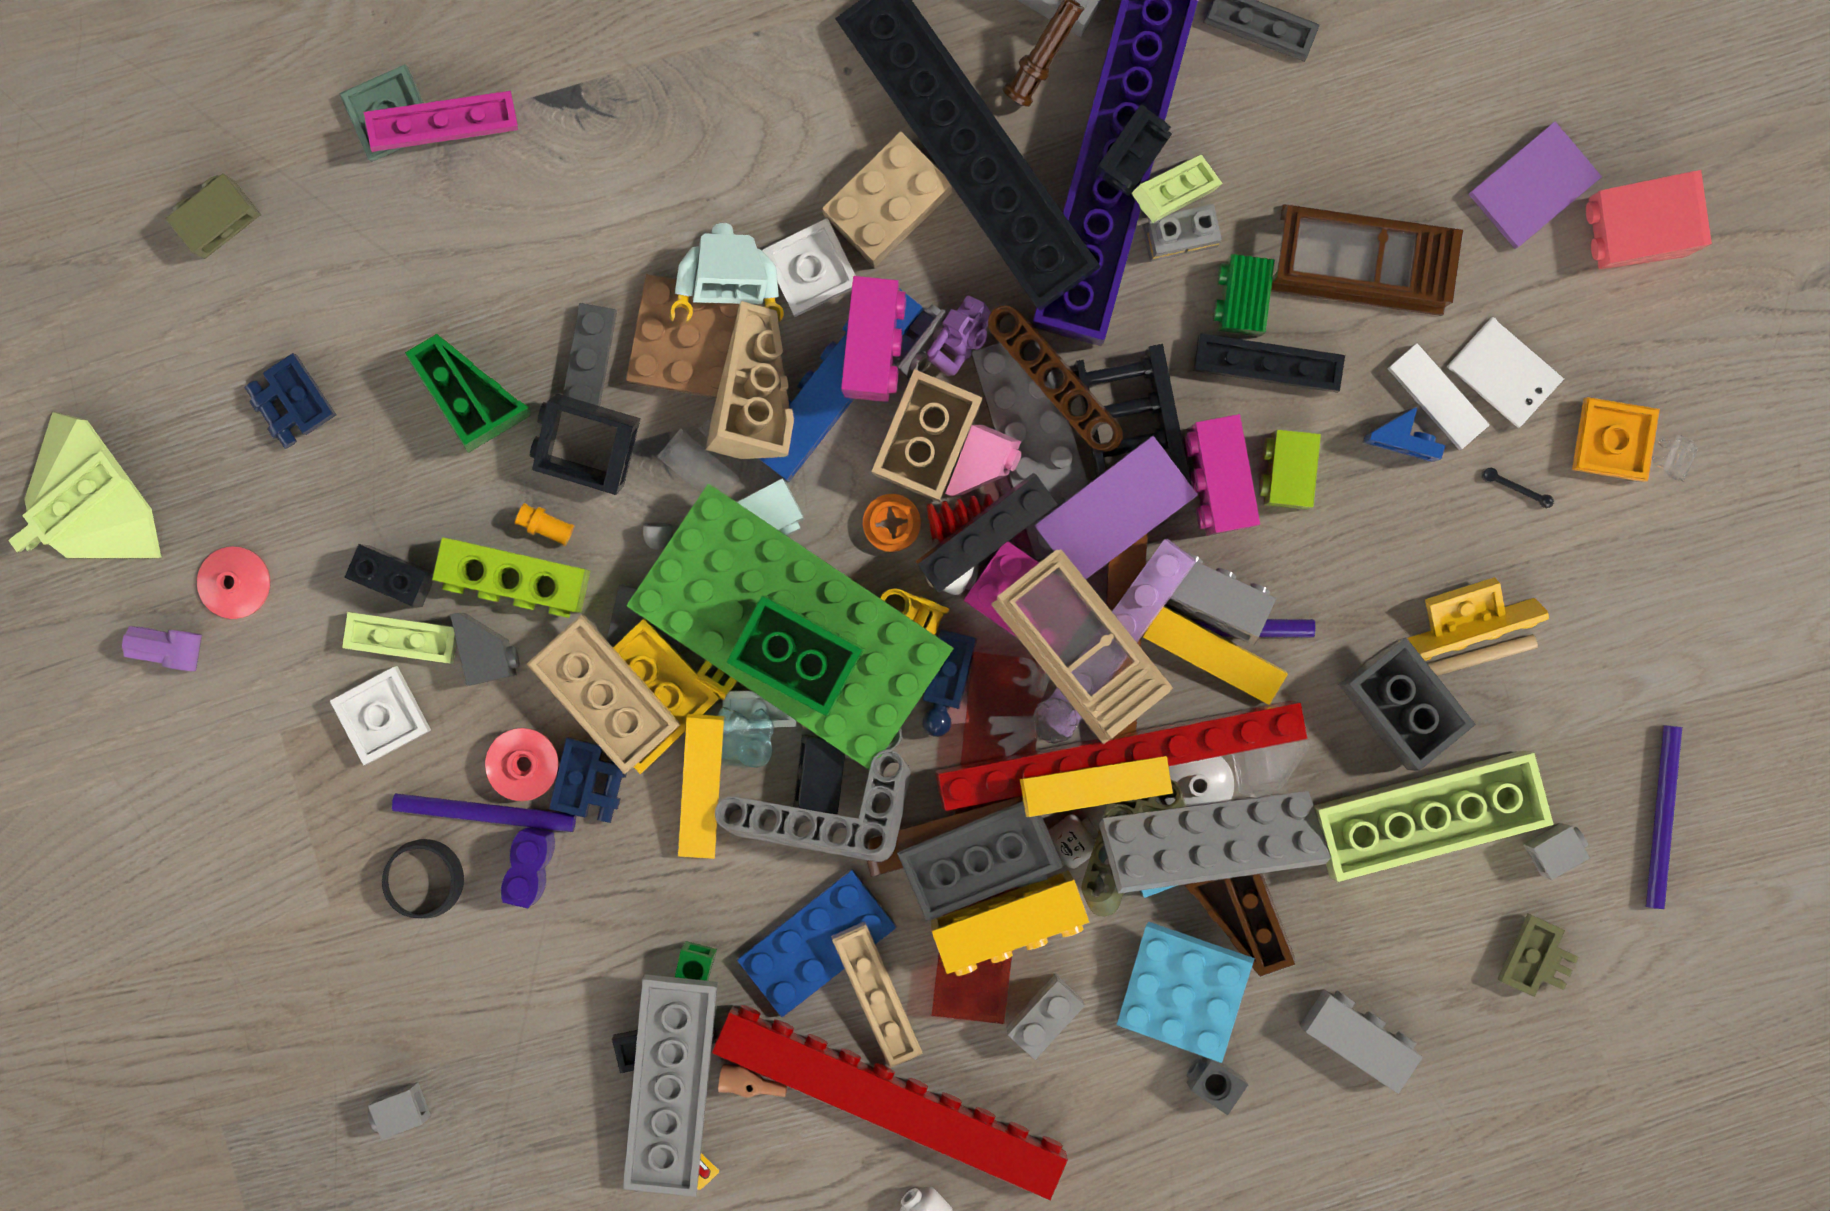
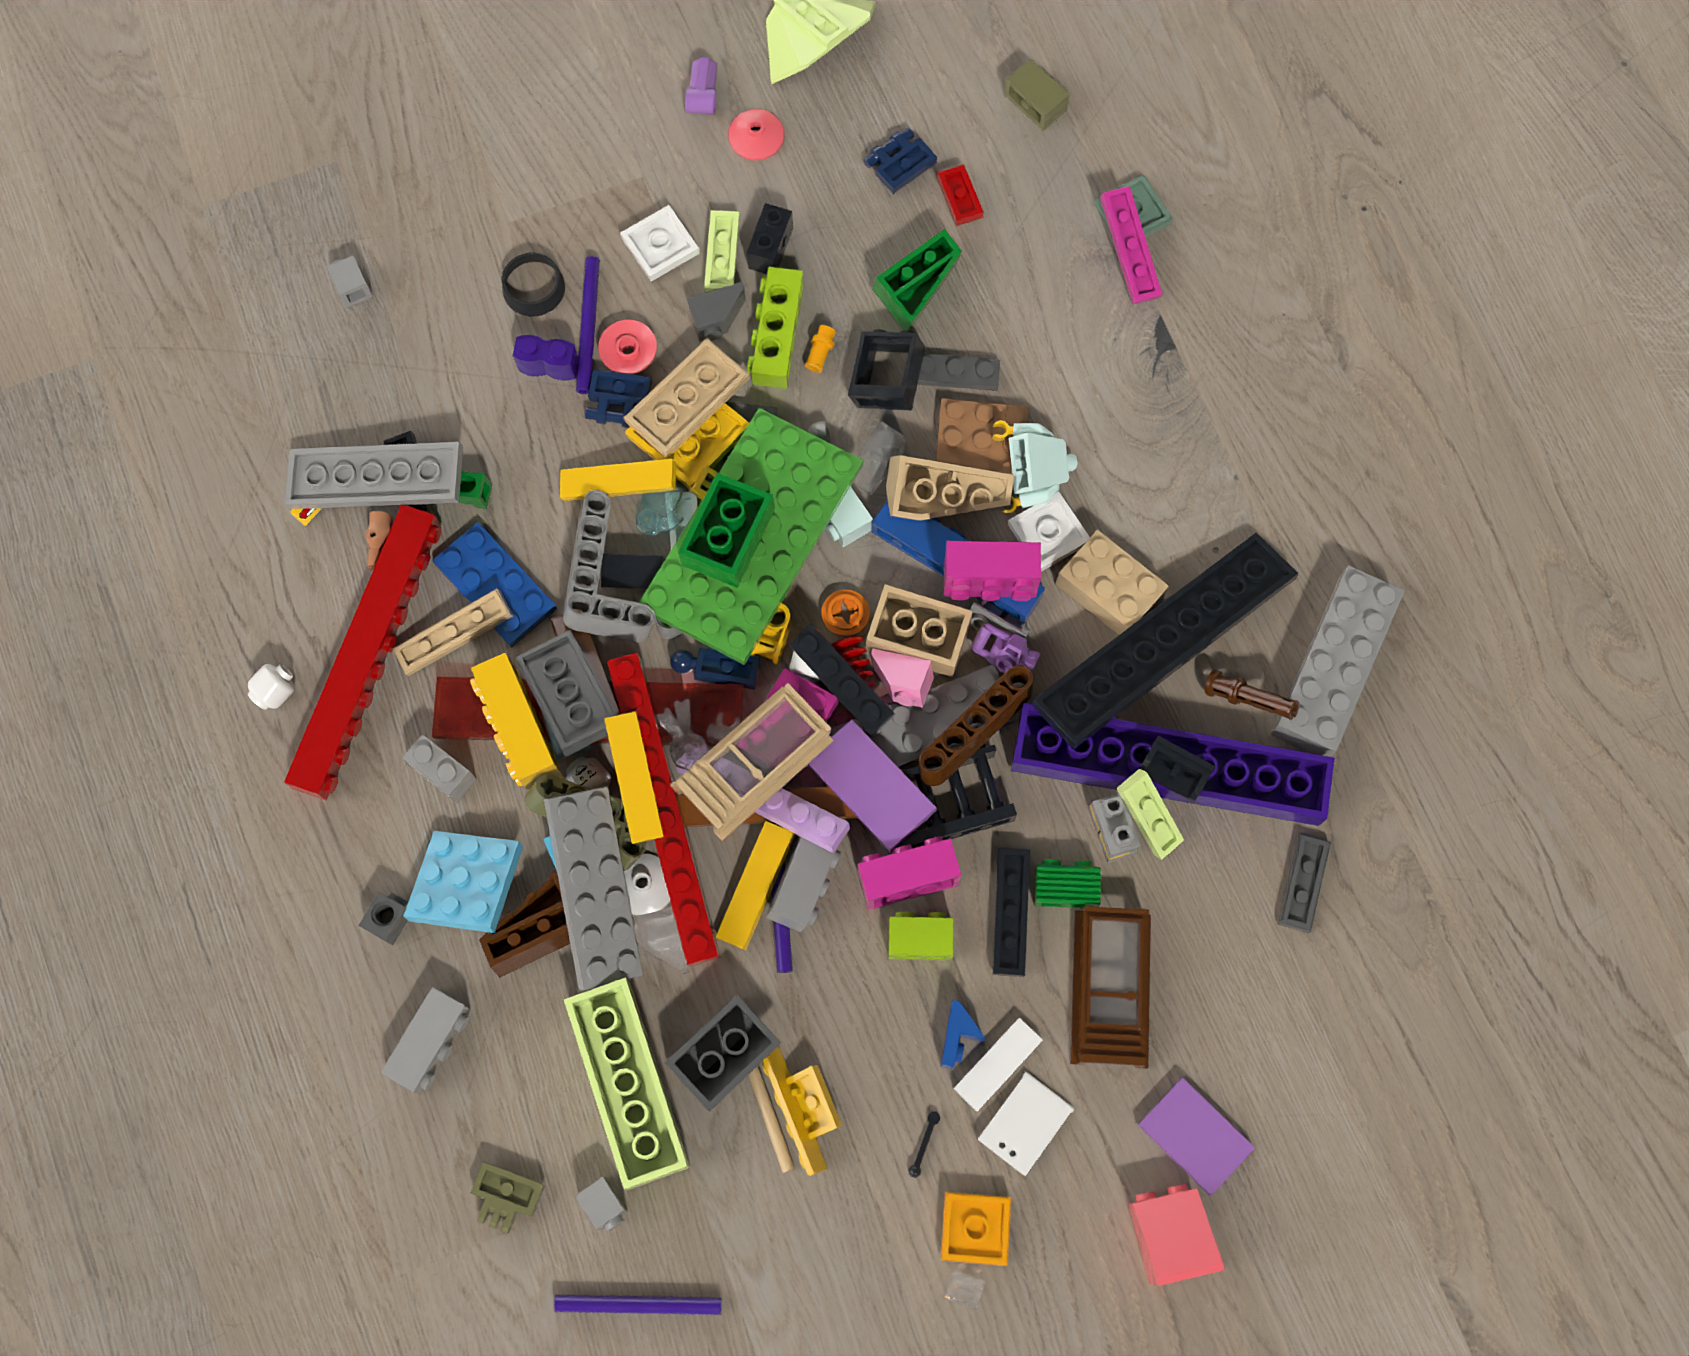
camera: 80 degrees right, 15 degrees down
(347, 329) = (960, 195): none -> red plate

